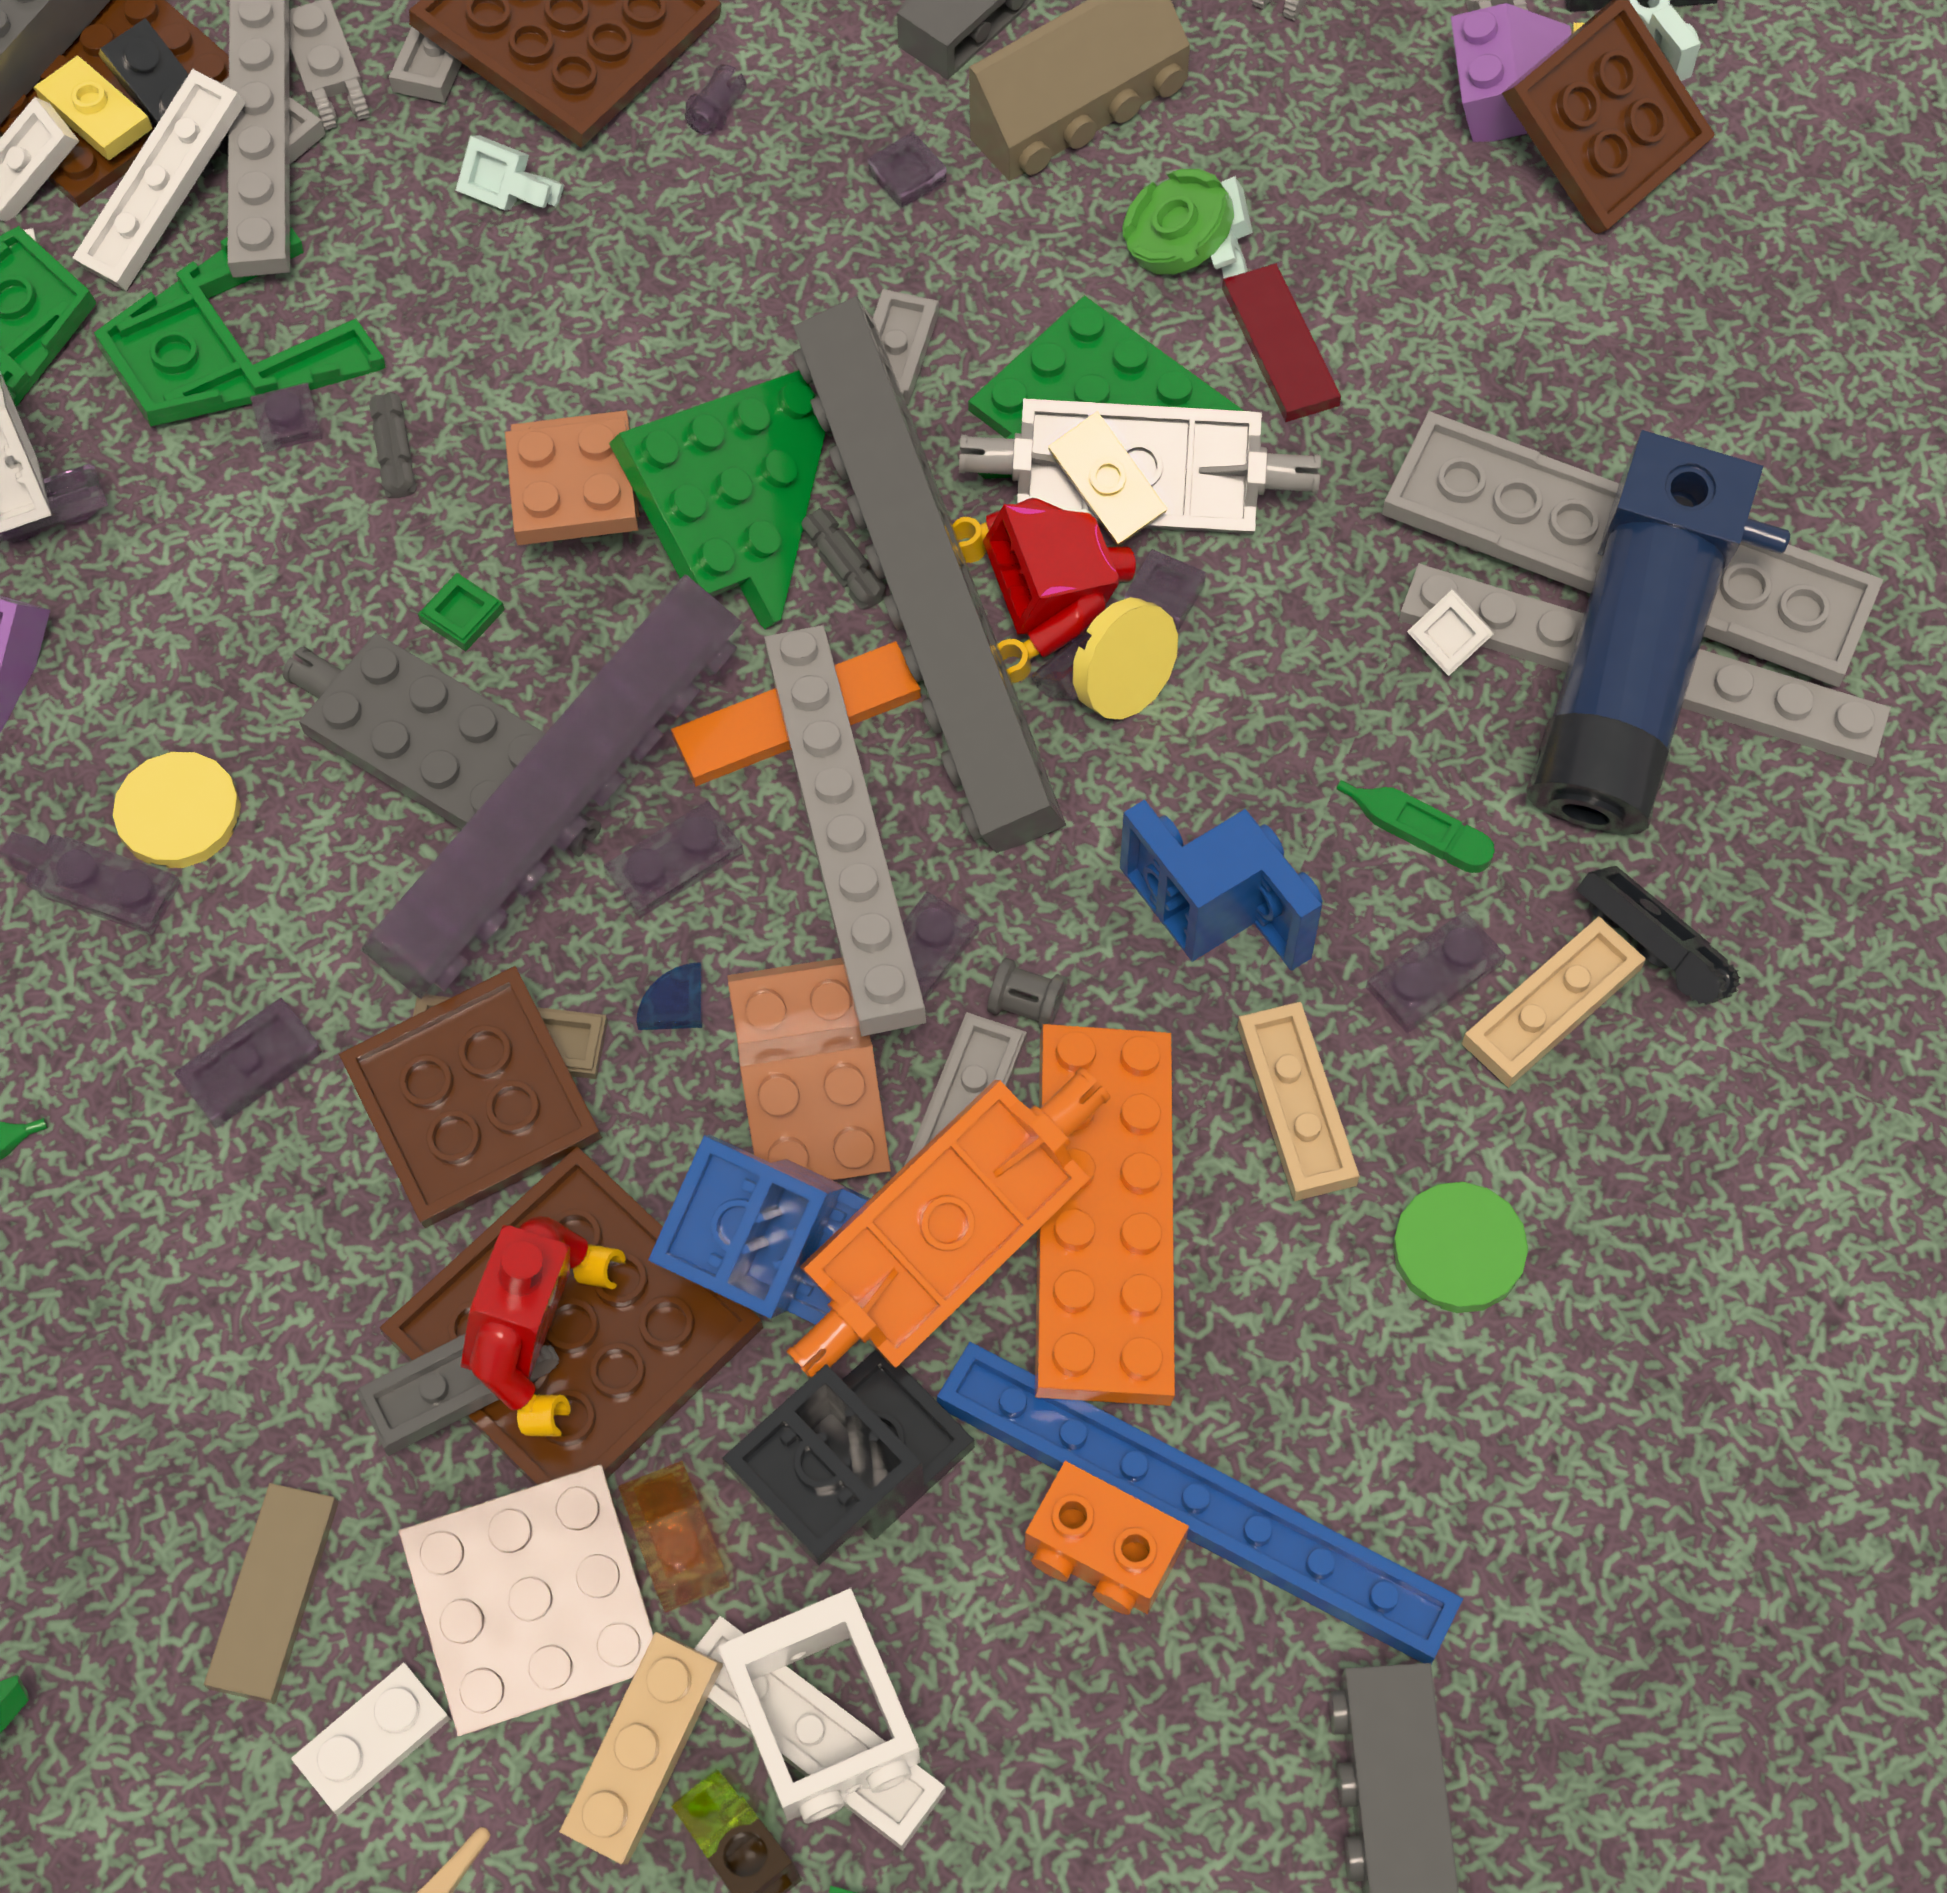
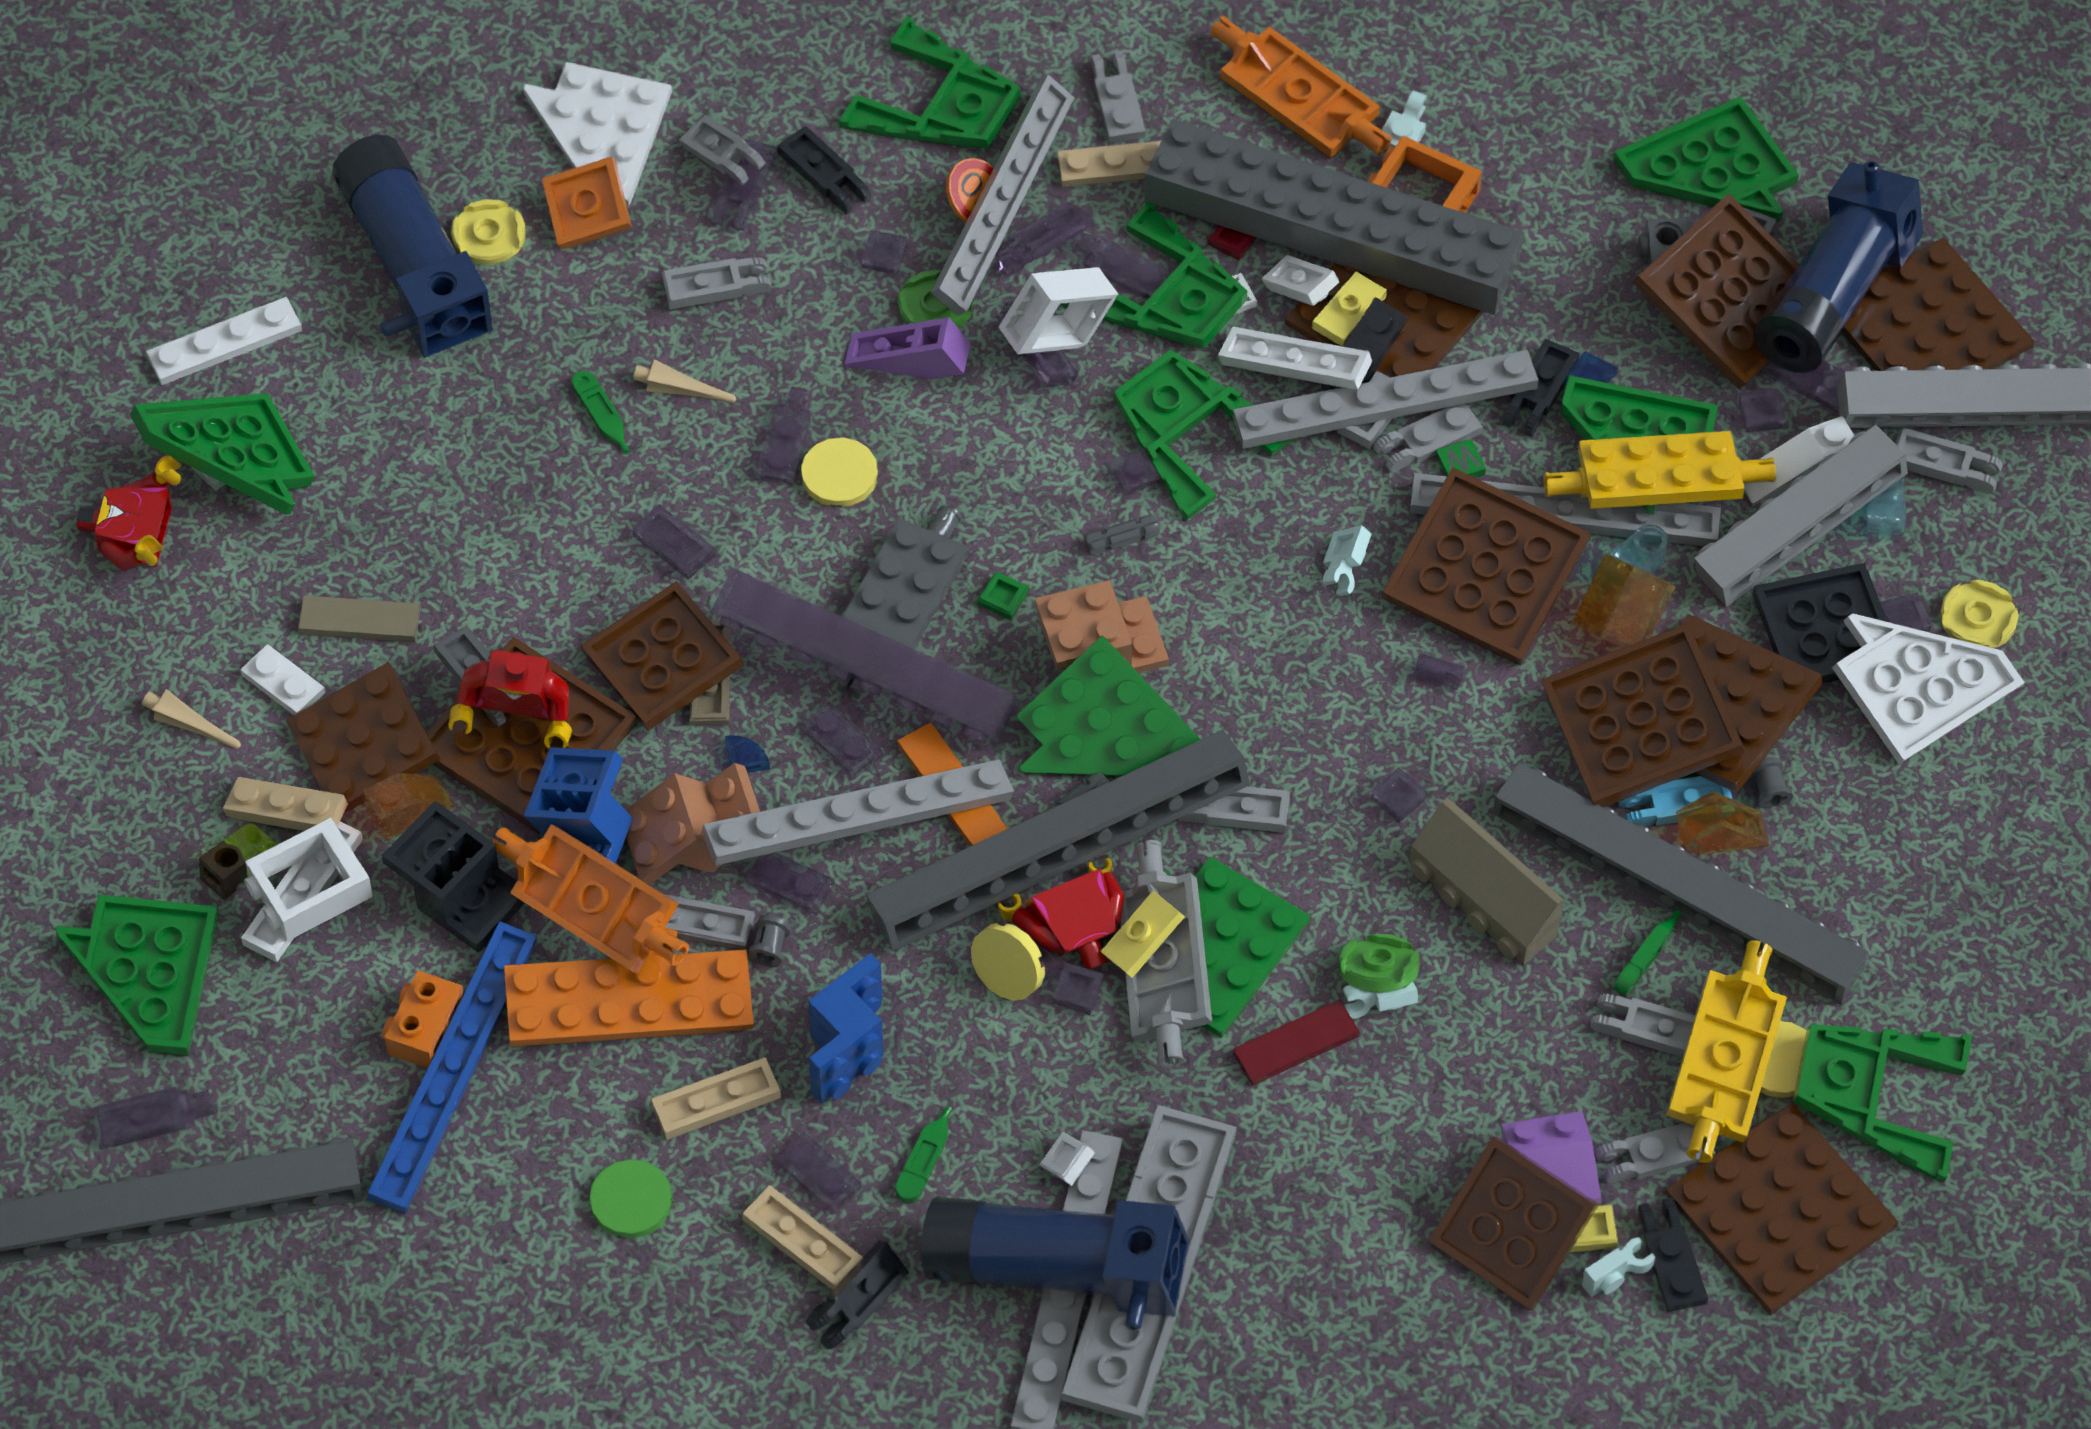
camera: 80 degrees right, 5 degrees down
(376, 33) = (1462, 457): none -> green tile

